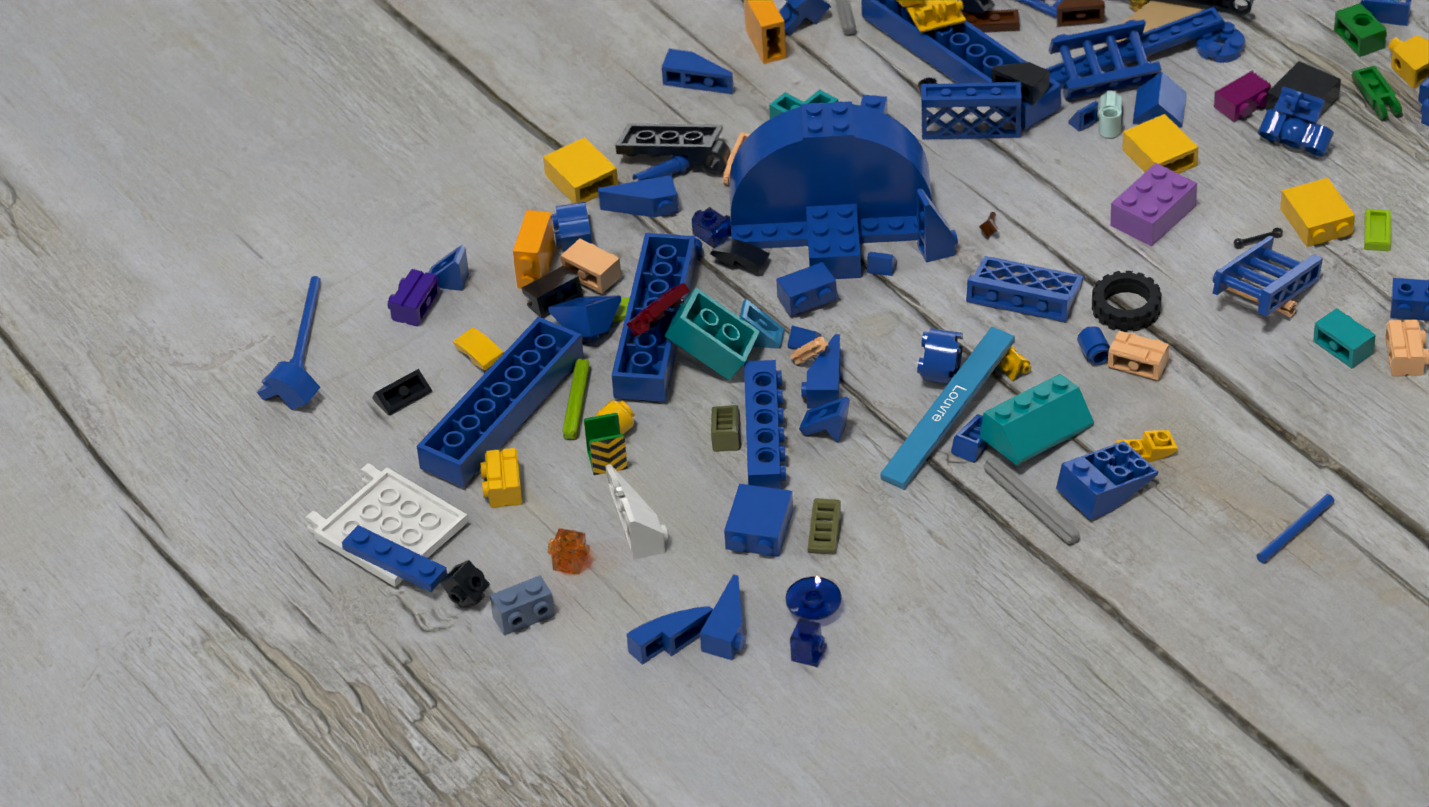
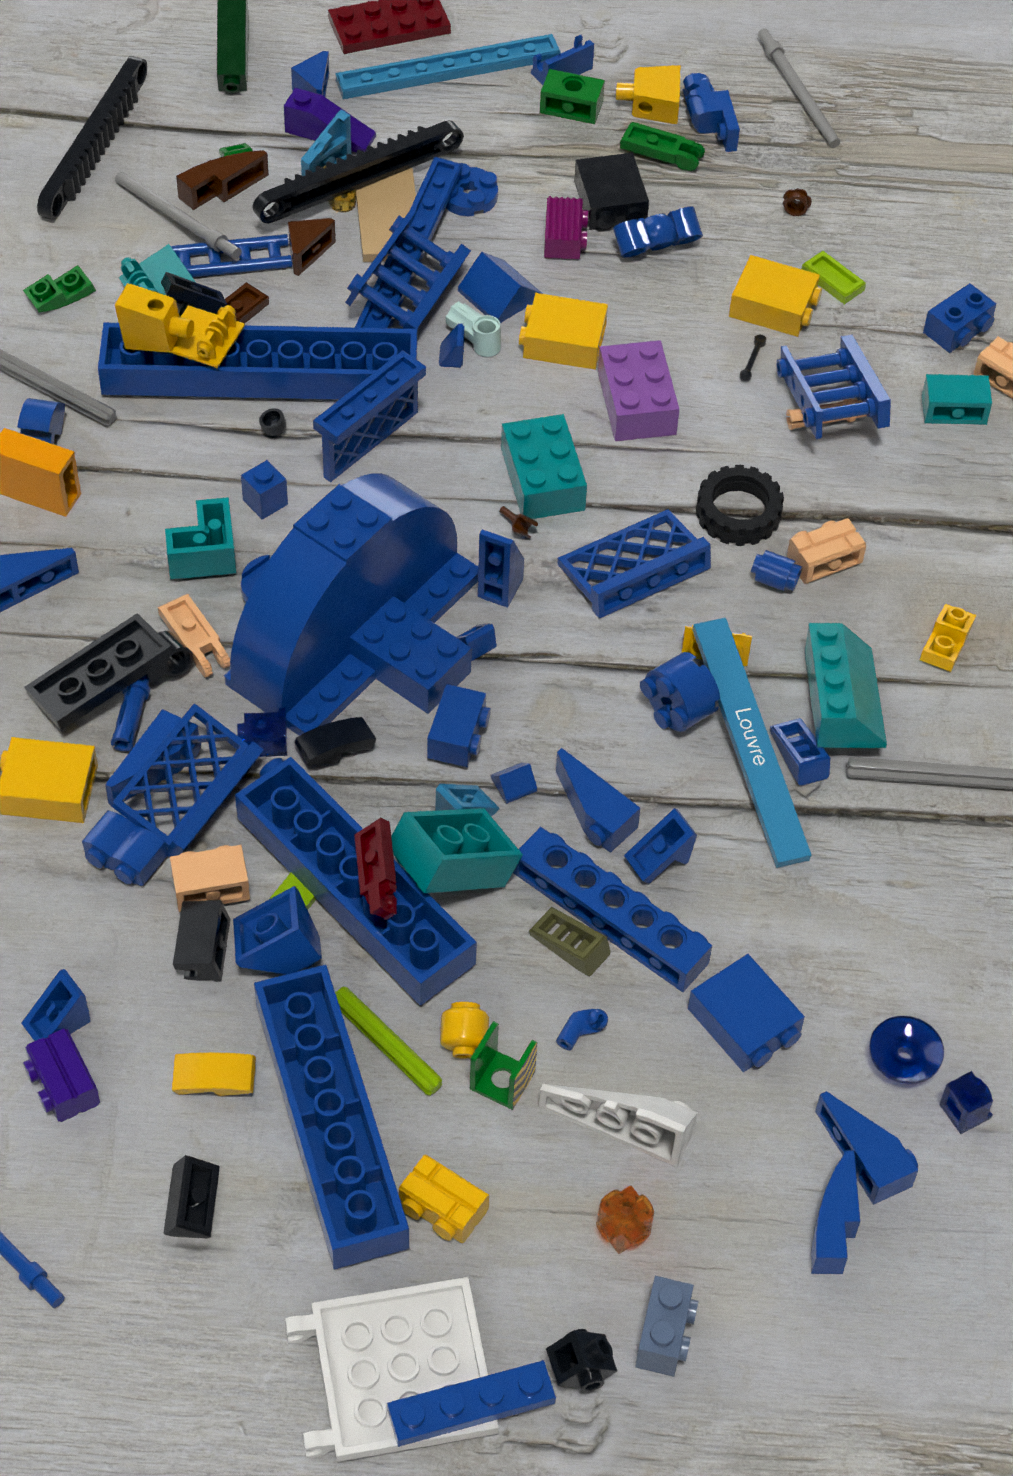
camera: 55 degrees left, 10 degrees up
(290, 383) = (64, 1304): blue brick -> none
(534, 247) = (133, 910): light orange brick -> none
(633, 237) = (216, 790): none -> blue fence
(675, 463) = (580, 1024): none -> blue arm
(809, 350) = (553, 789): light nougat axle -> none
(829, 511) = (804, 946): olive slope -> none
(1032, 77) = (385, 344): black slope -> none
(1039, 205) = (543, 467): none -> teal brick
(1104, 479) = (970, 697): blue slope -> none
(1299, 105) = (647, 200): blue hips -> none
(1416, 174) = (794, 207): none -> reddish brown plate

